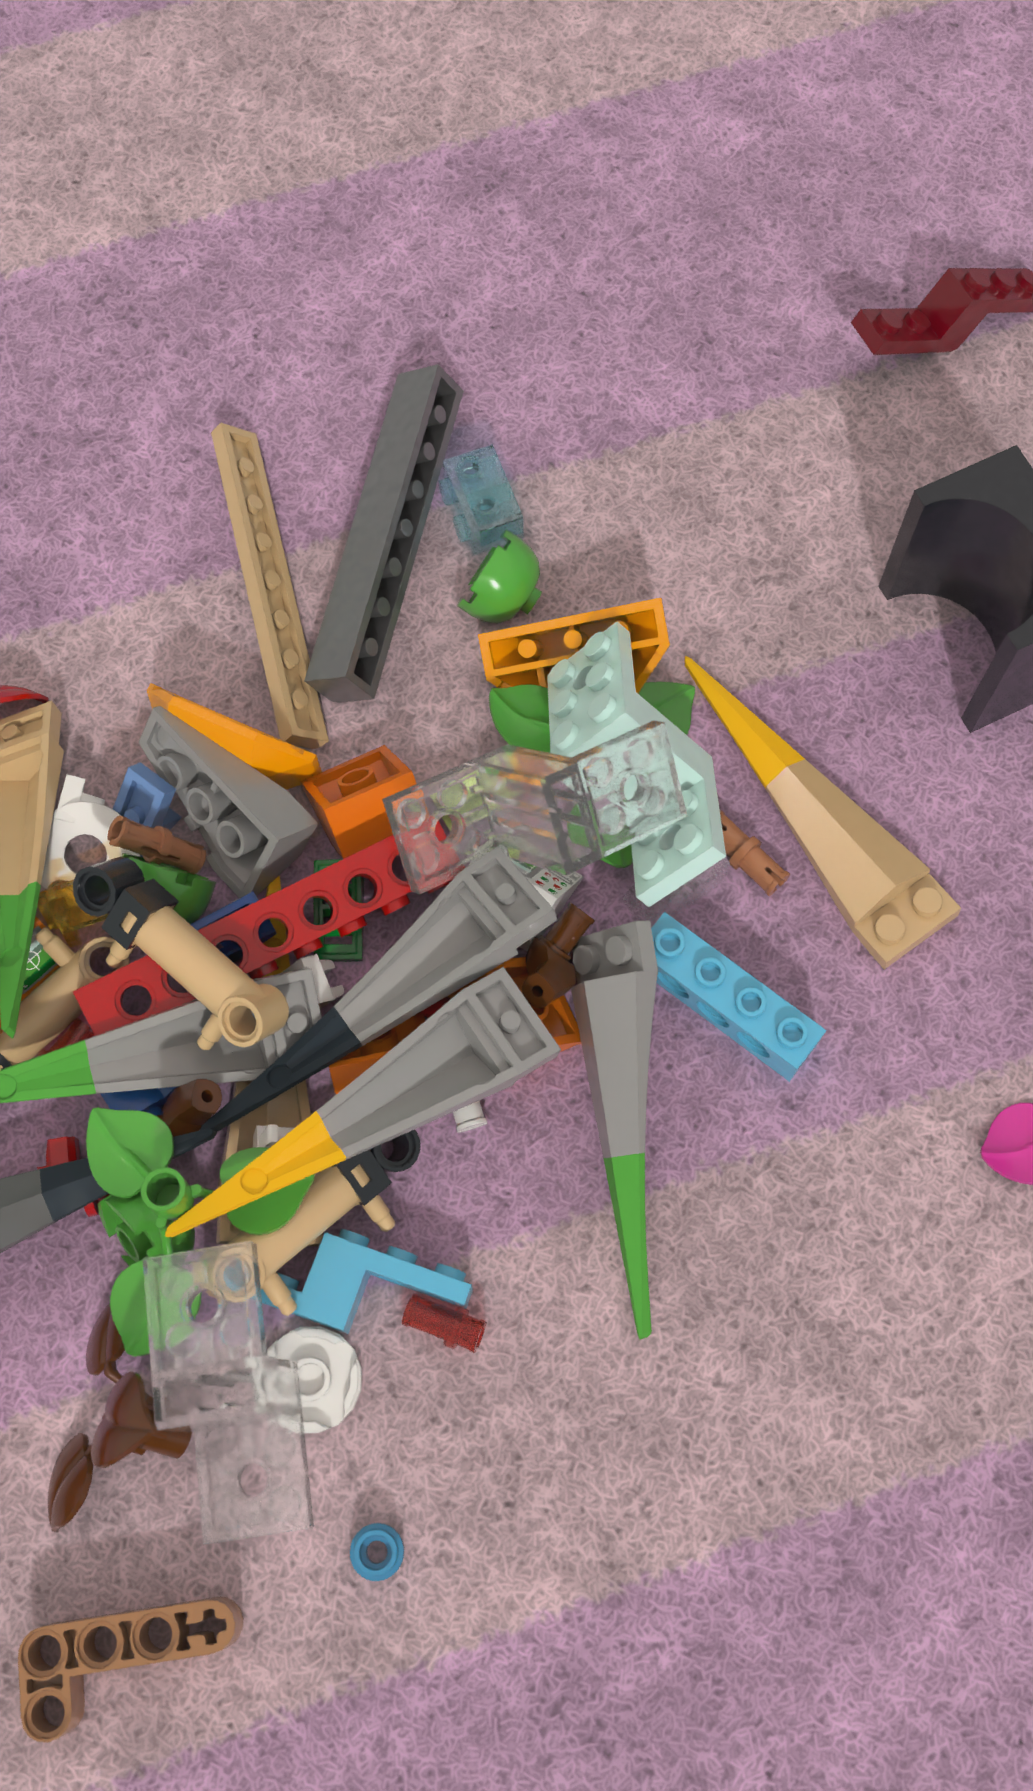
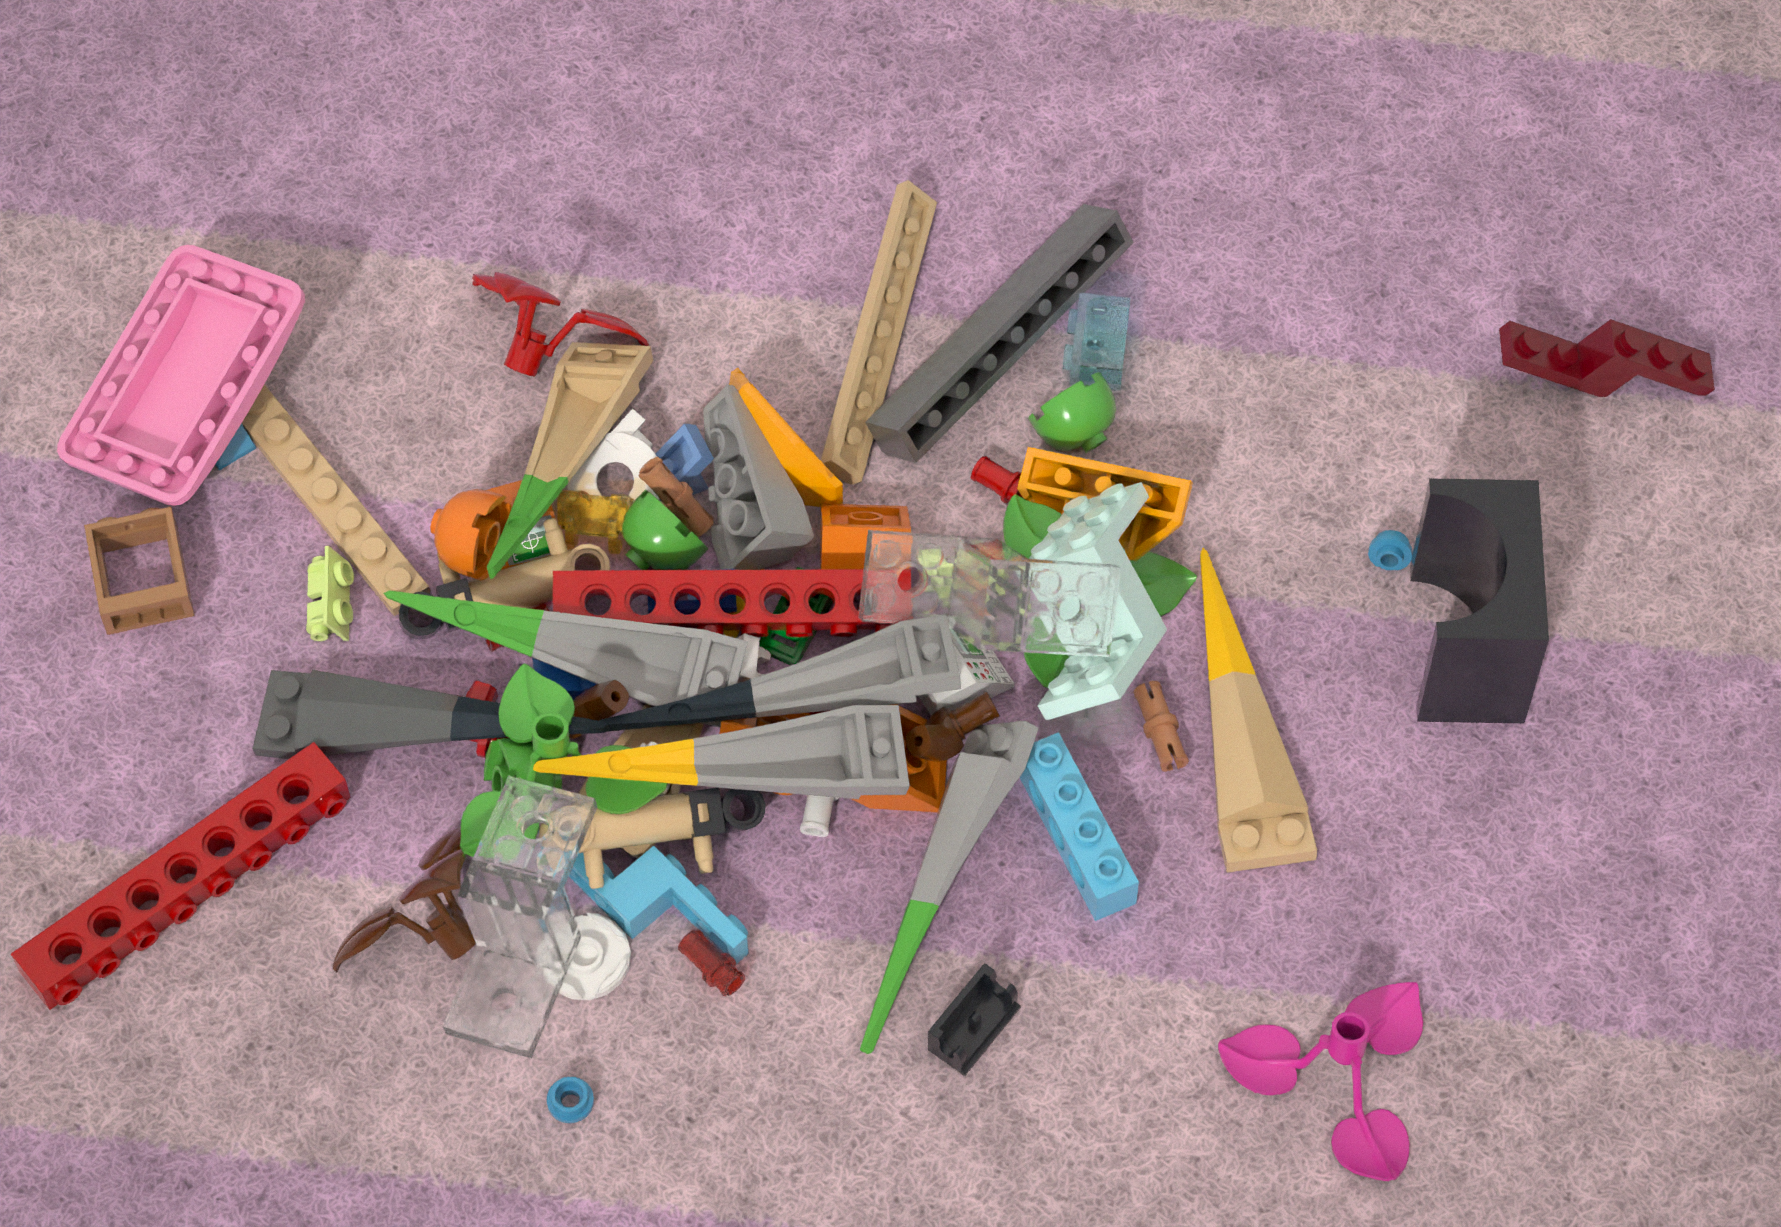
camera: 25 degrees right, 10 degrees down
(133, 1649) = (349, 1074): medium nougat beam -> none
(146, 918) = (638, 538): tan piece -> none
(459, 678) = (996, 478): none -> red pin
(736, 1252) = (973, 1020): none -> black hinge
(858, 579) = (1390, 550): none -> dark azure plate

